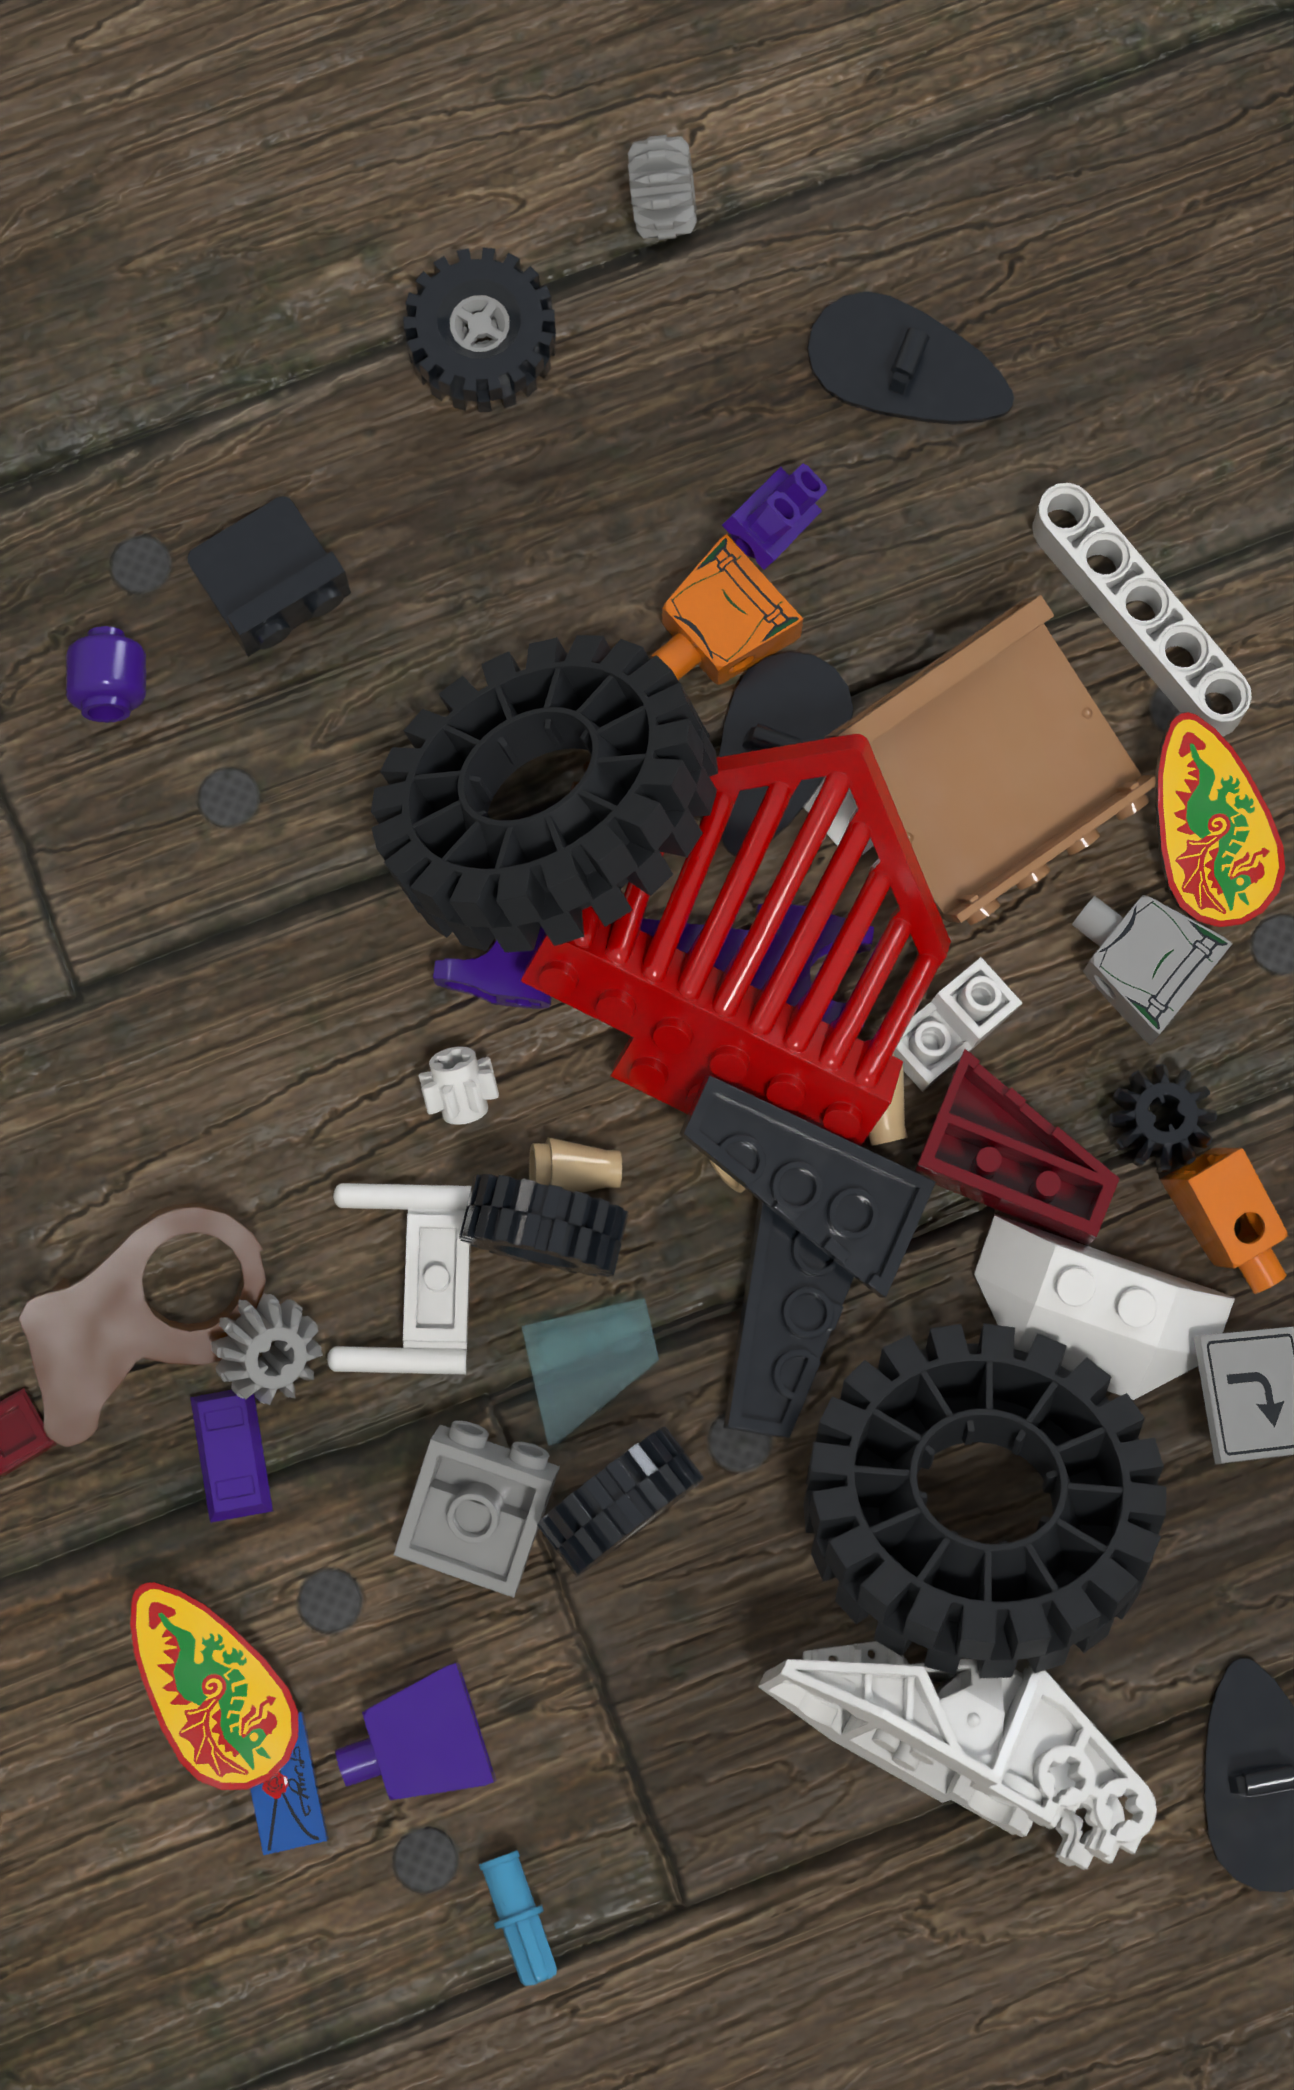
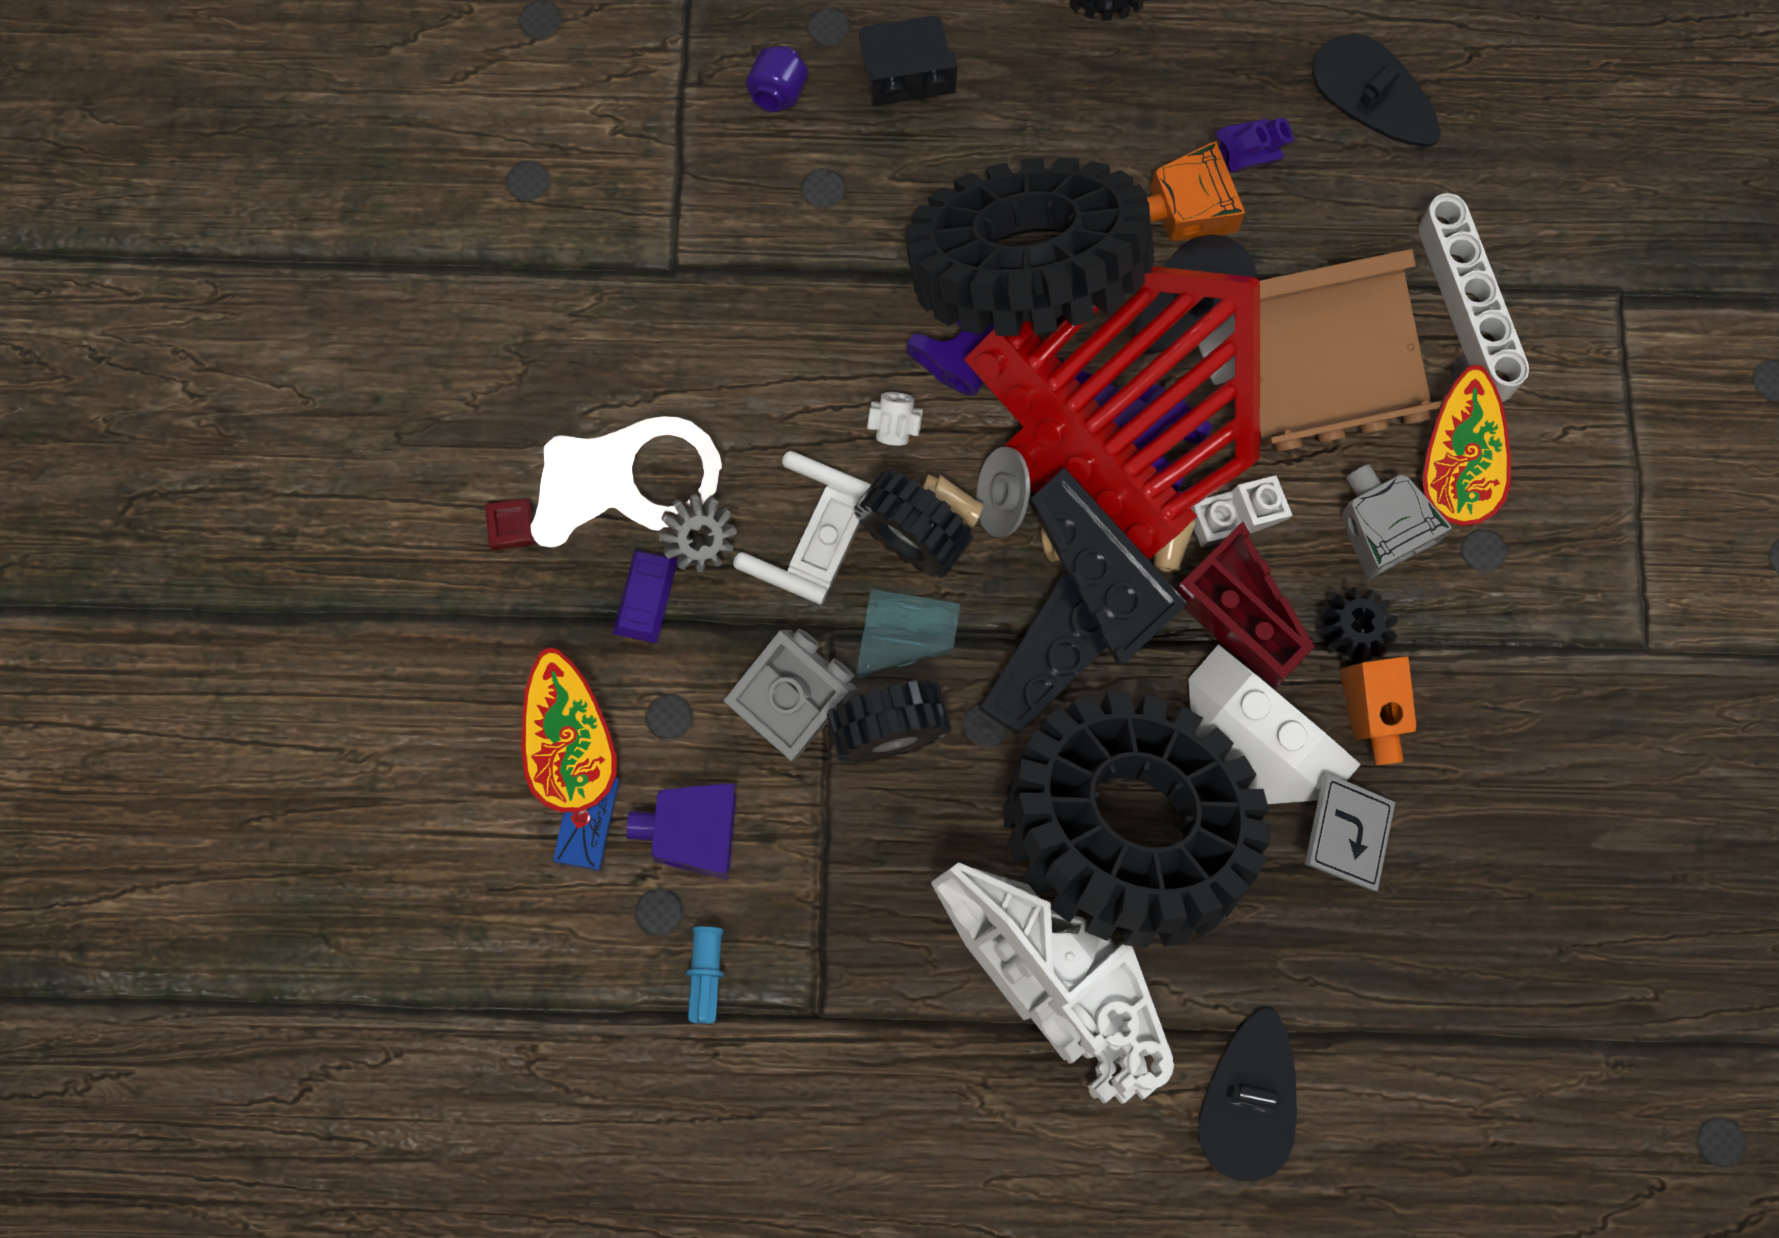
camera: 20 degrees right, 5 degrees down
(642, 1127) = (1004, 491): none -> light grey dish

